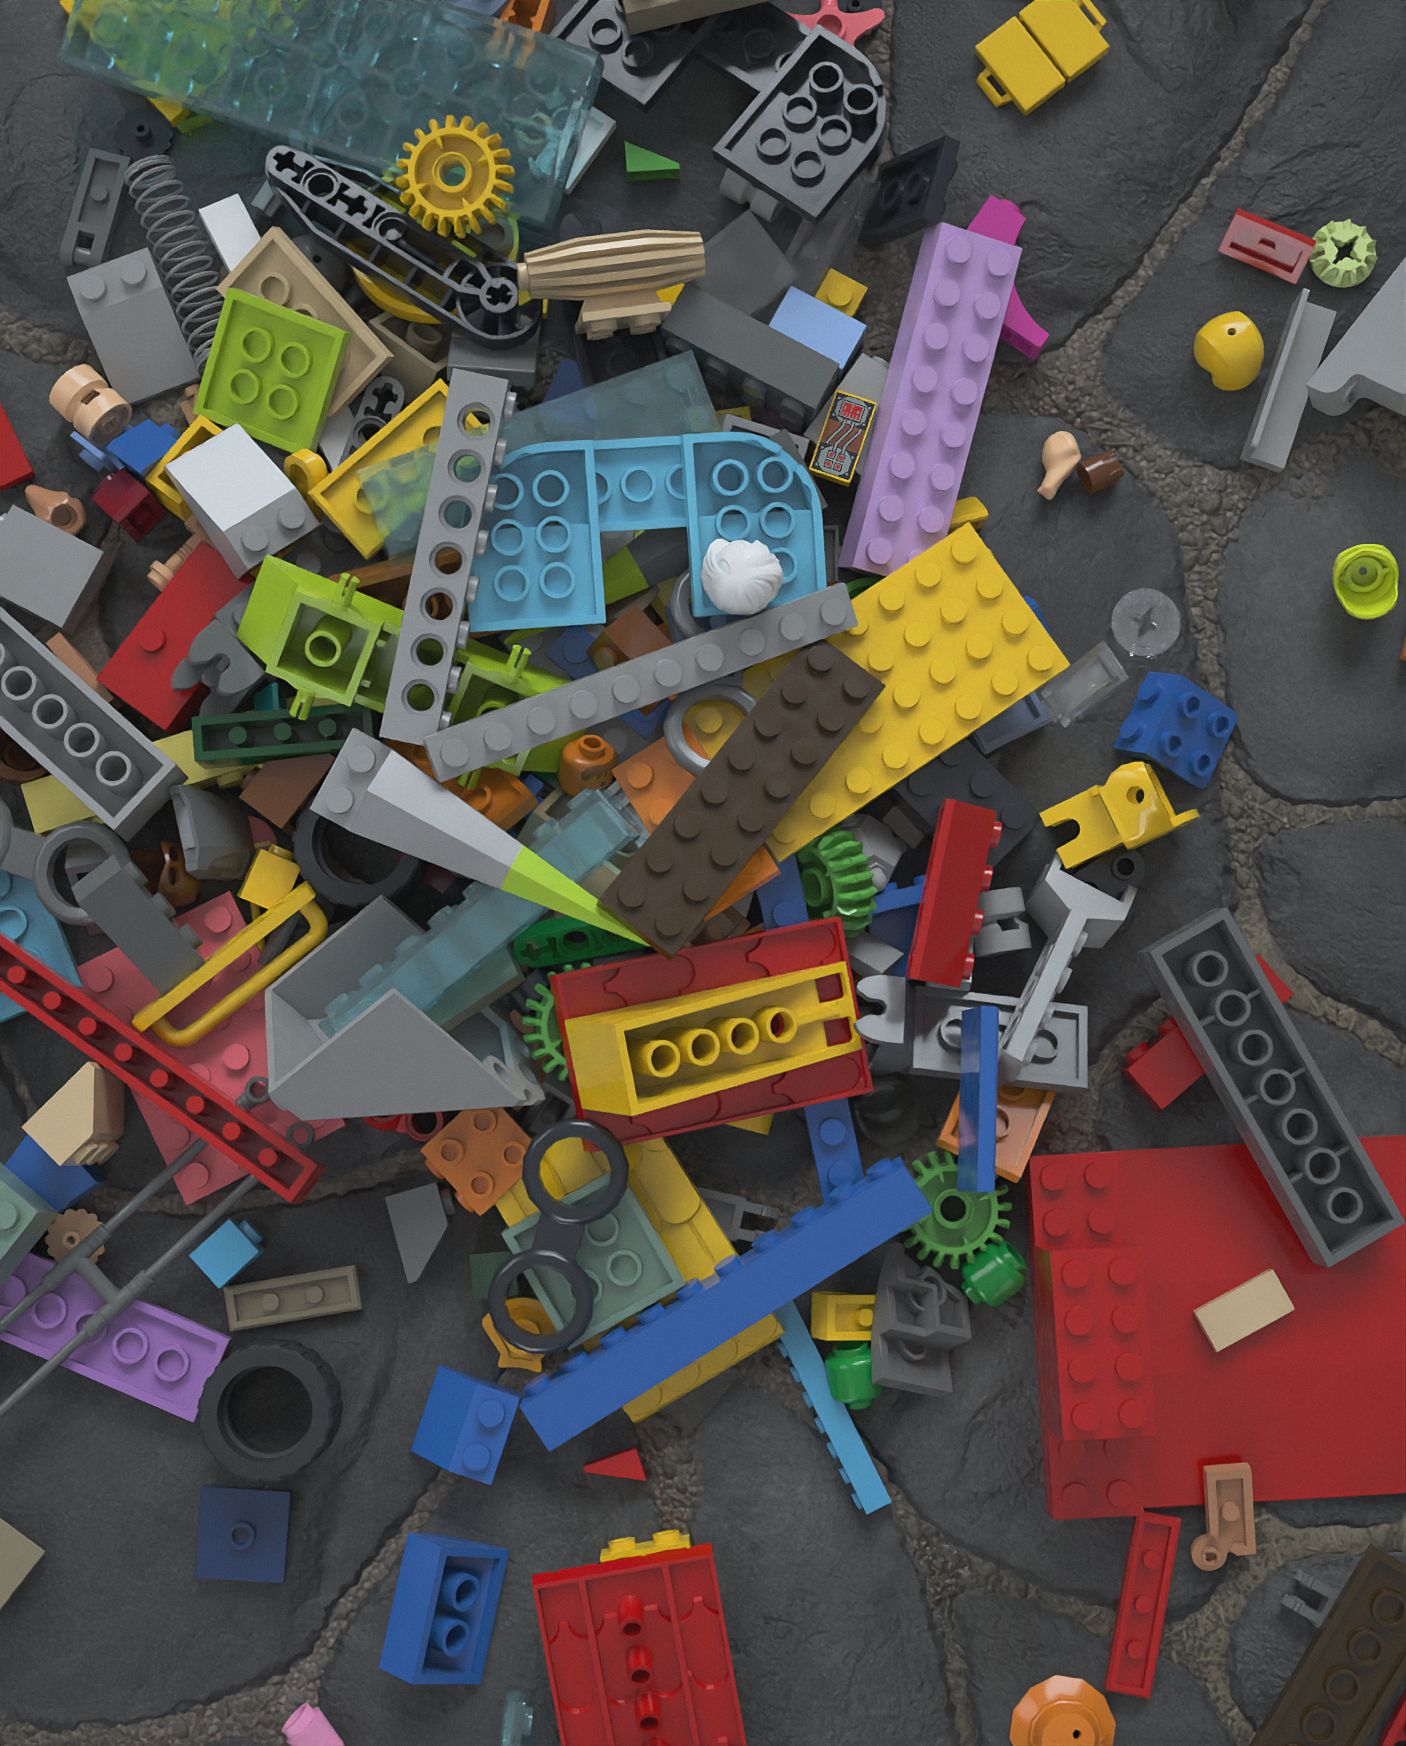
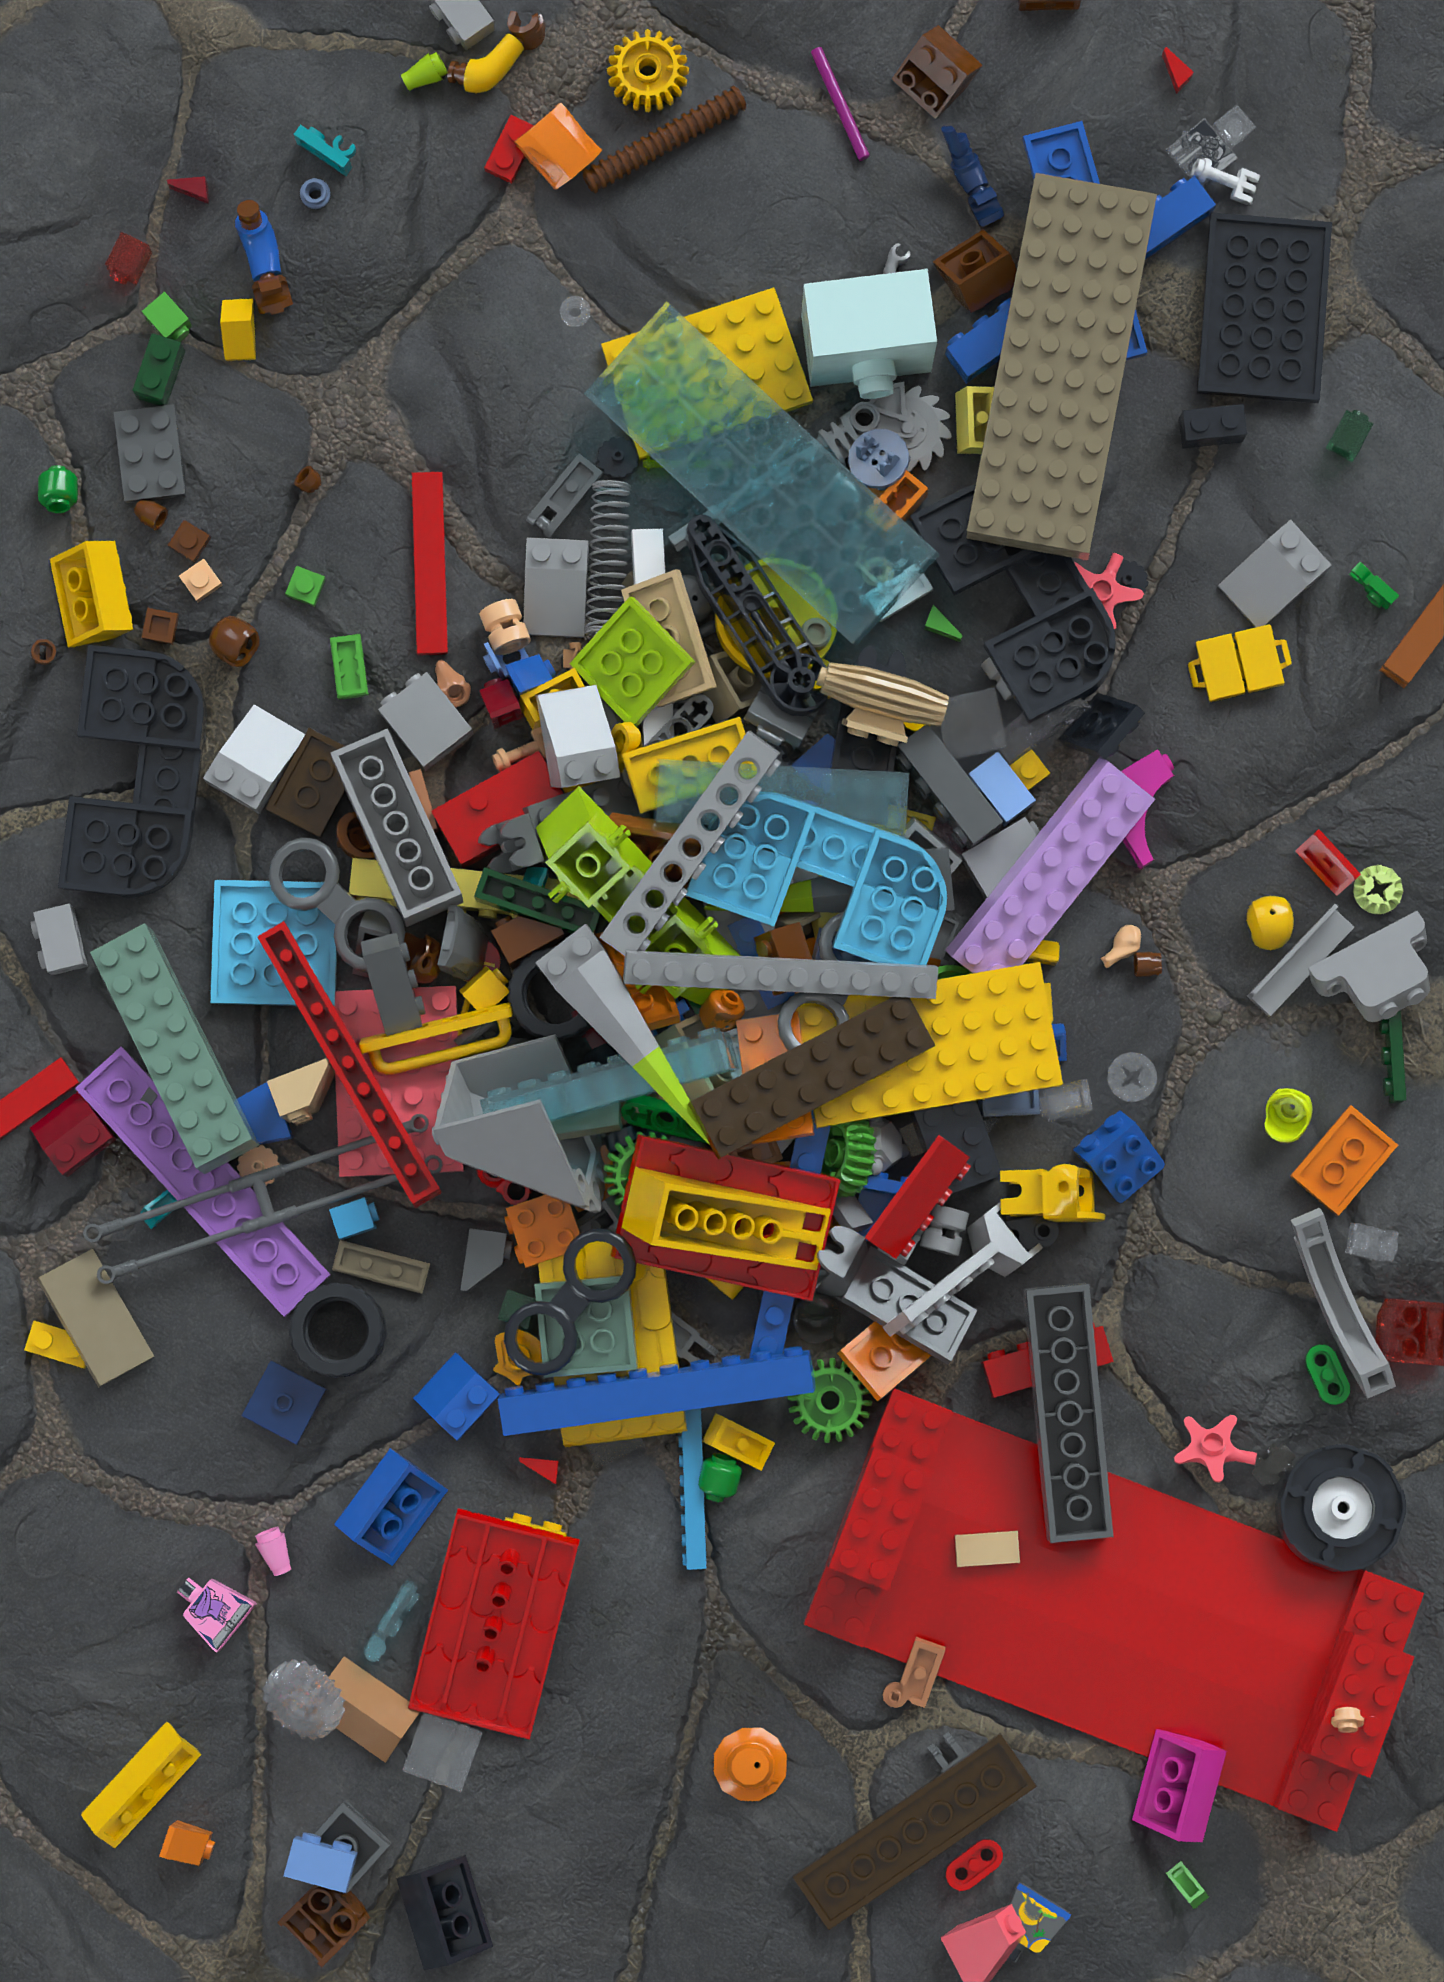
camera: 25 degrees right, 0 degrees up
(438, 155) = (789, 586): yellow gear -> none
(741, 576) = (872, 935): white hair -> none
(842, 438) = (985, 868): tile -> none
(915, 1326) = (772, 1464): dark grey slope -> none
(978, 1099) = (874, 1334): blue tile -> none
(994, 1275) = (838, 1454): green head -> none
(1142, 1604) = (838, 1707): red tile -> none

